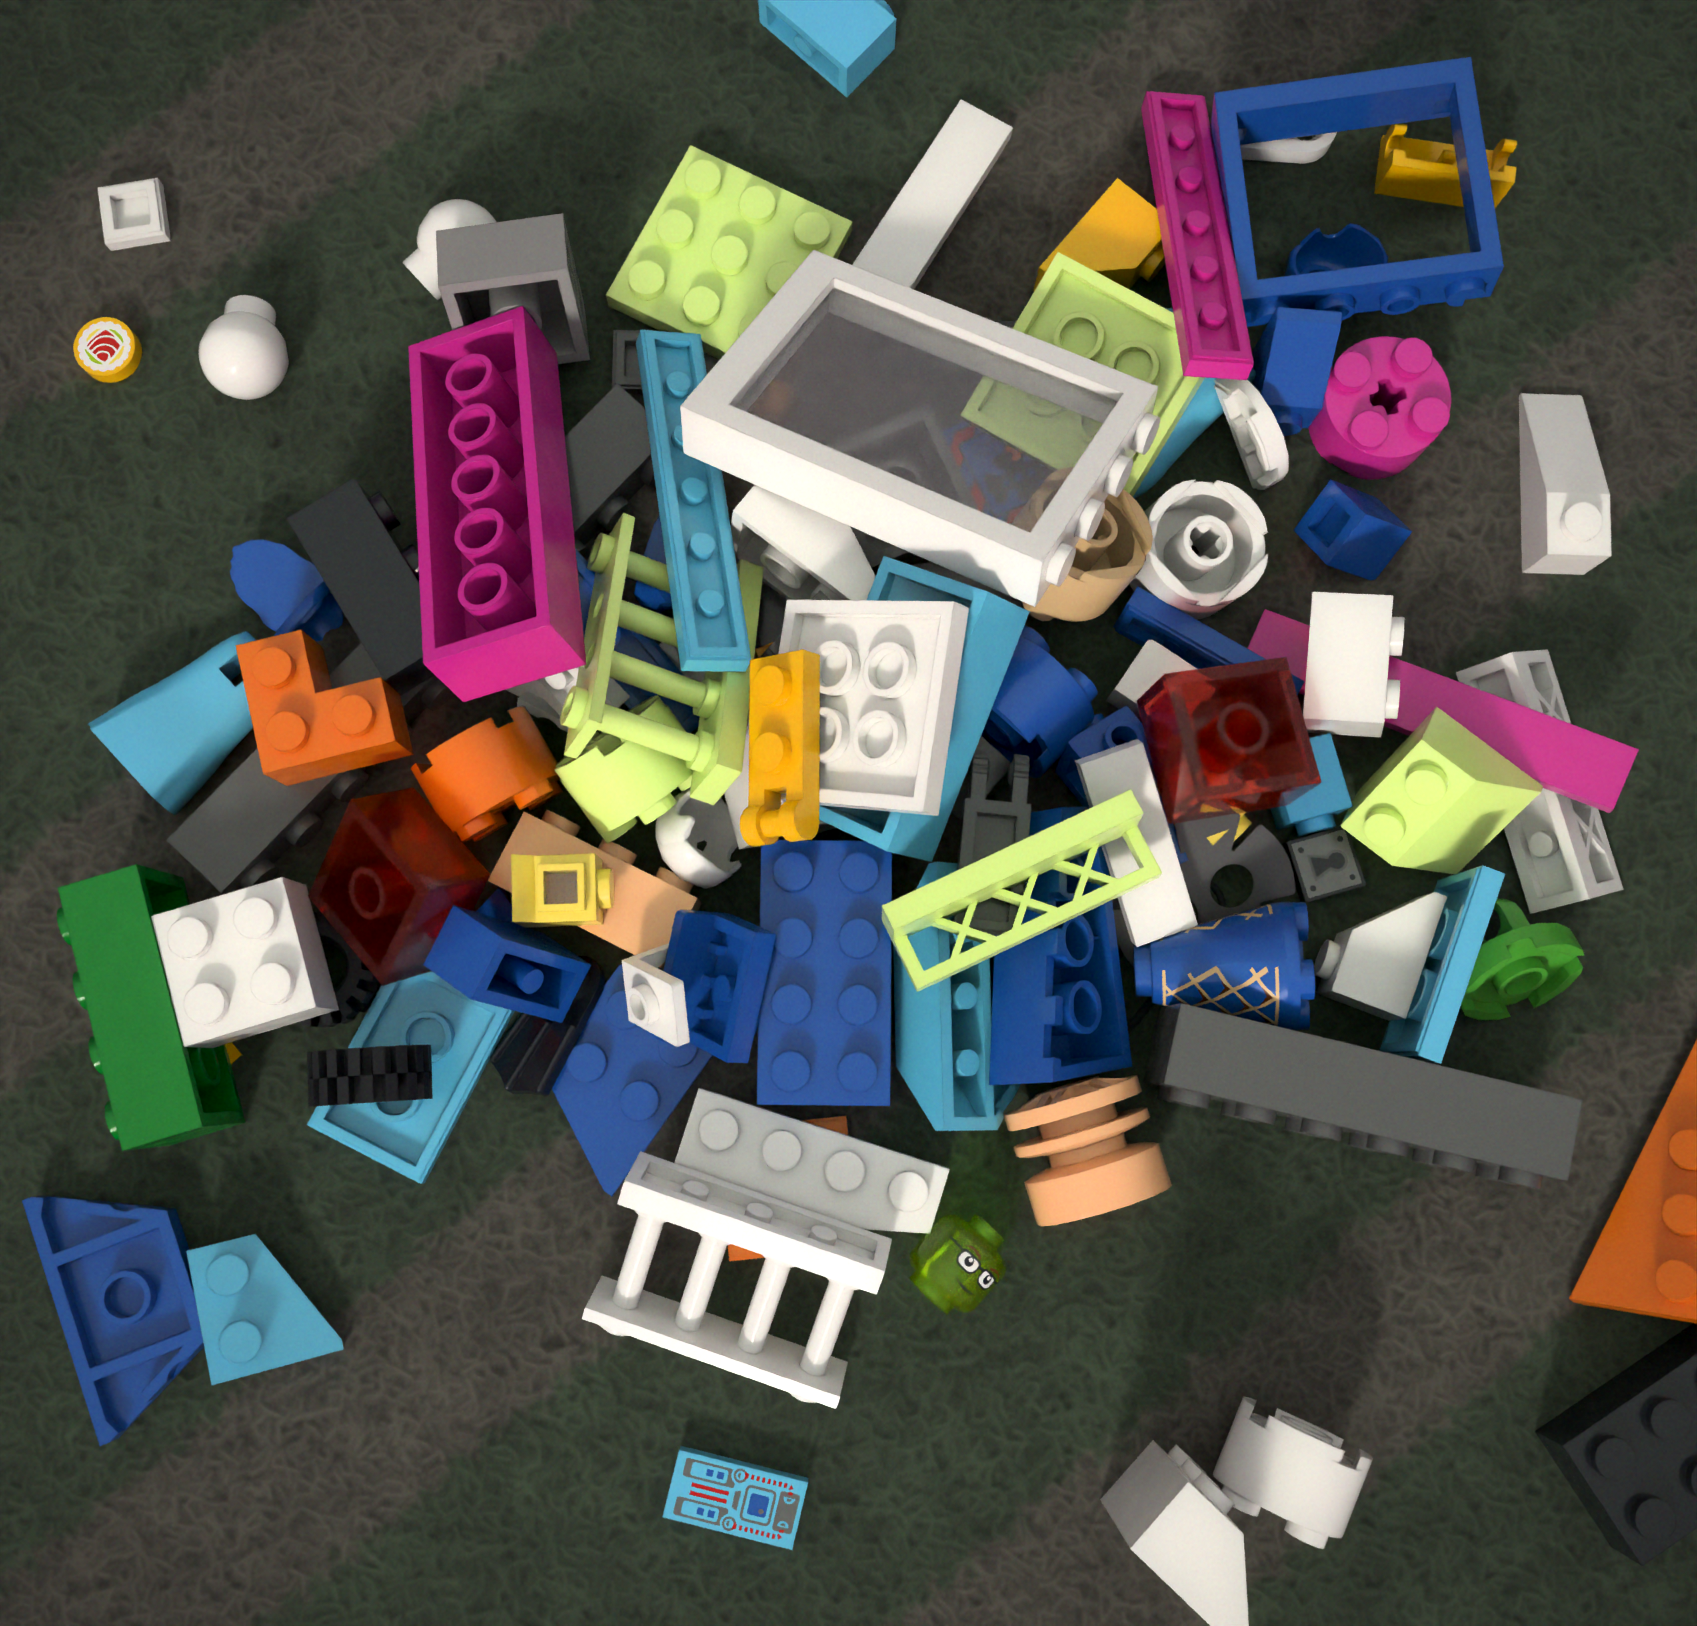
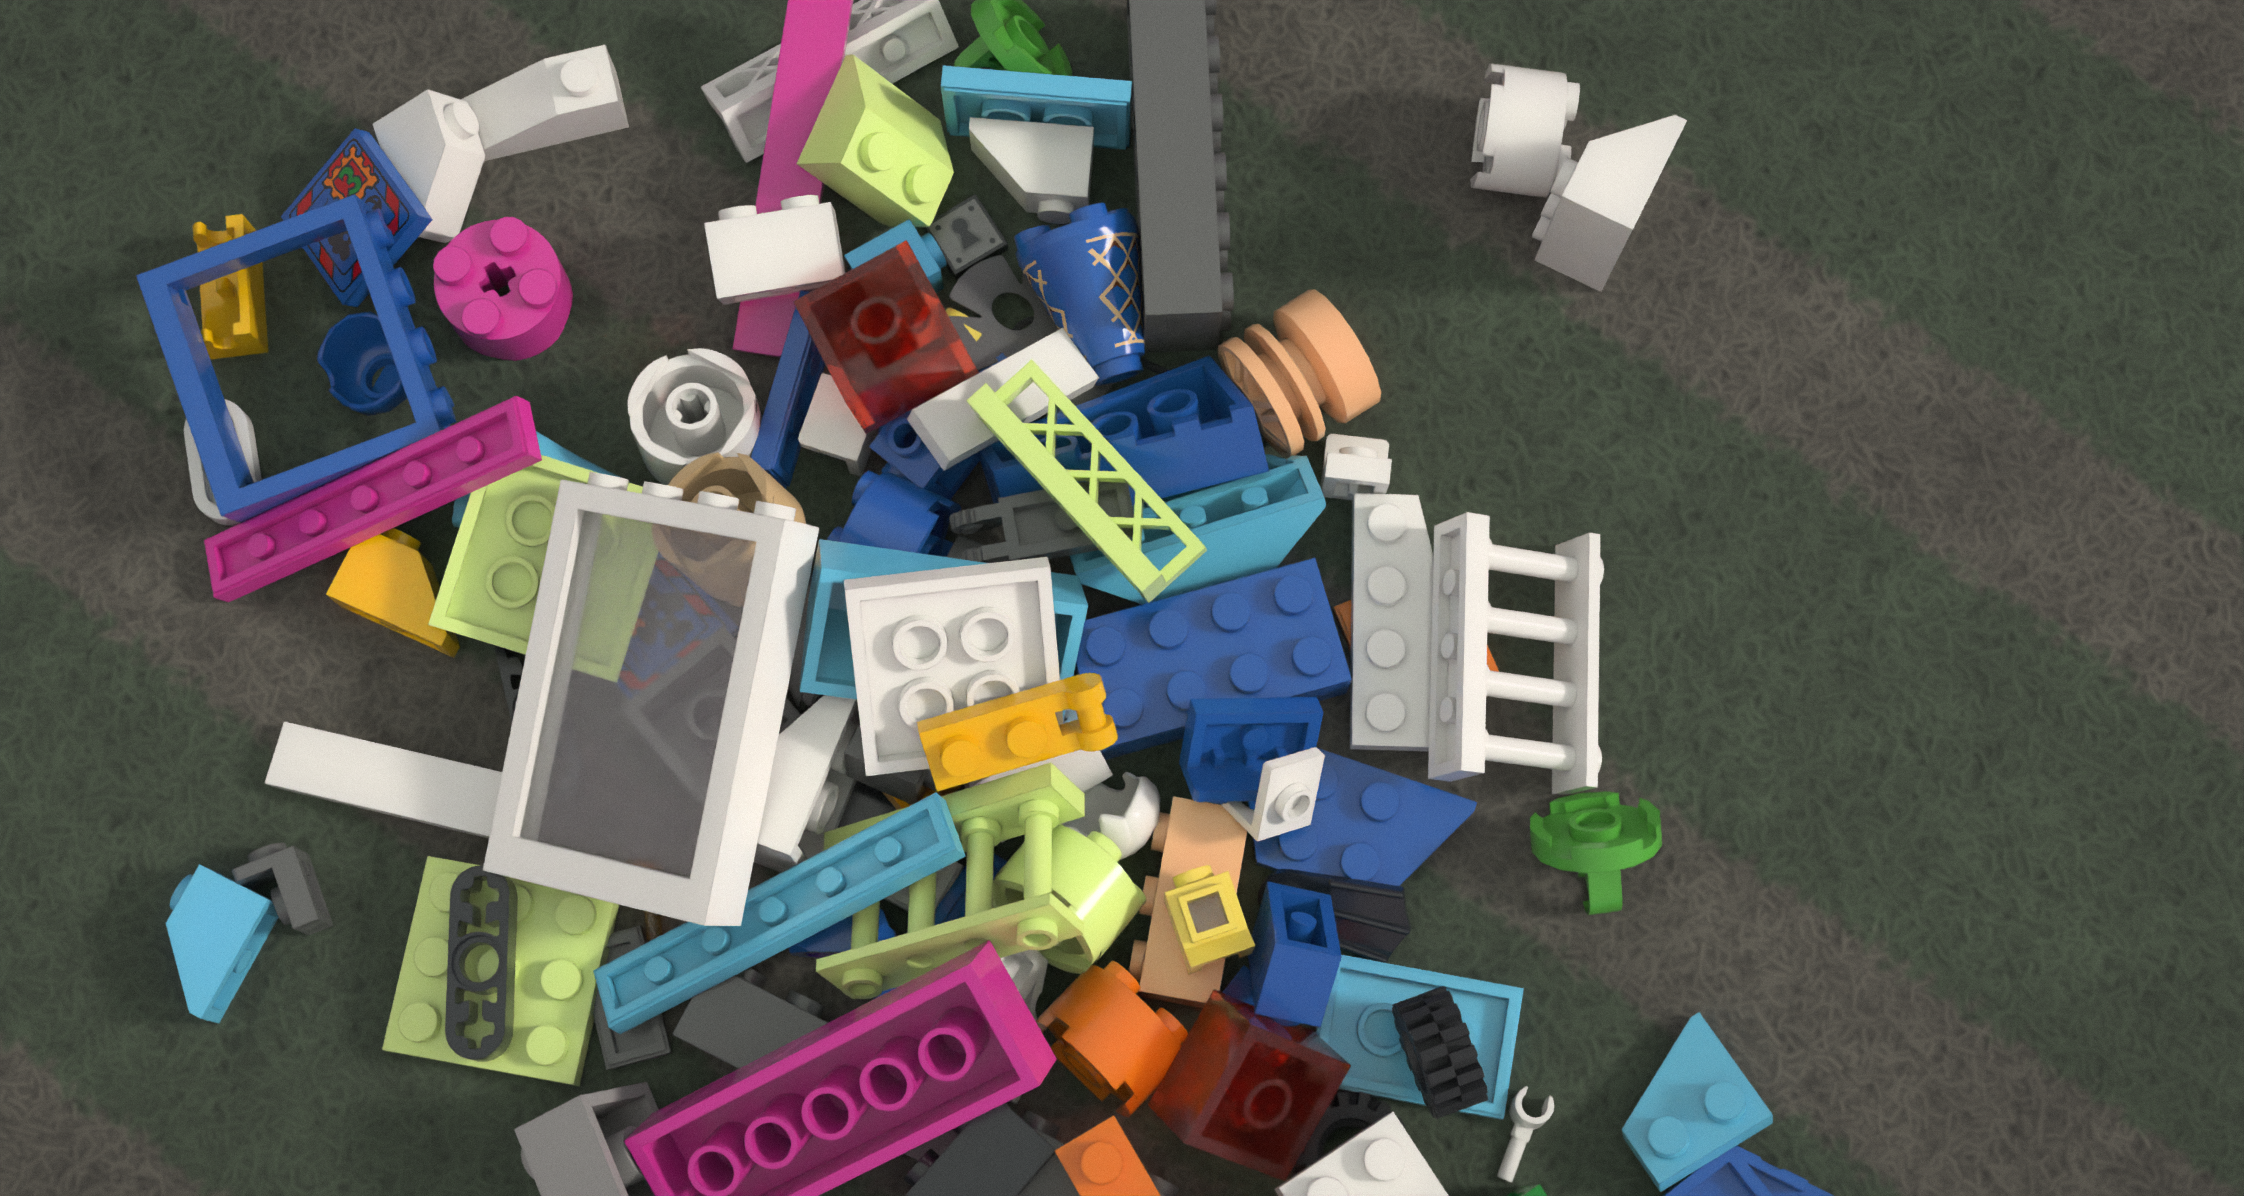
camera: 105 degrees left, 5 degrees down
(290, 1139) = (1521, 1133): none -> white hand
(531, 1301) = (1597, 840): none -> bright green tile
(720, 212) = (461, 1012): none -> black beam
(735, 1497) = (1708, 609): medium azure tile -> none
(857, 104) = (298, 893): none -> dark grey bracket
(958, 1263) = (1436, 465): clear neon green head -> none
(980, 1181) = (1355, 466): none -> white bracket
(1254, 432) = (567, 393): white tile -> none
(1295, 364) = (487, 371): blue slope -> none
(1352, 531) = (632, 287): blue panel -> none
(1521, 301) = (367, 172): none -> tile
(1526, 371) = (438, 156): none -> white slope

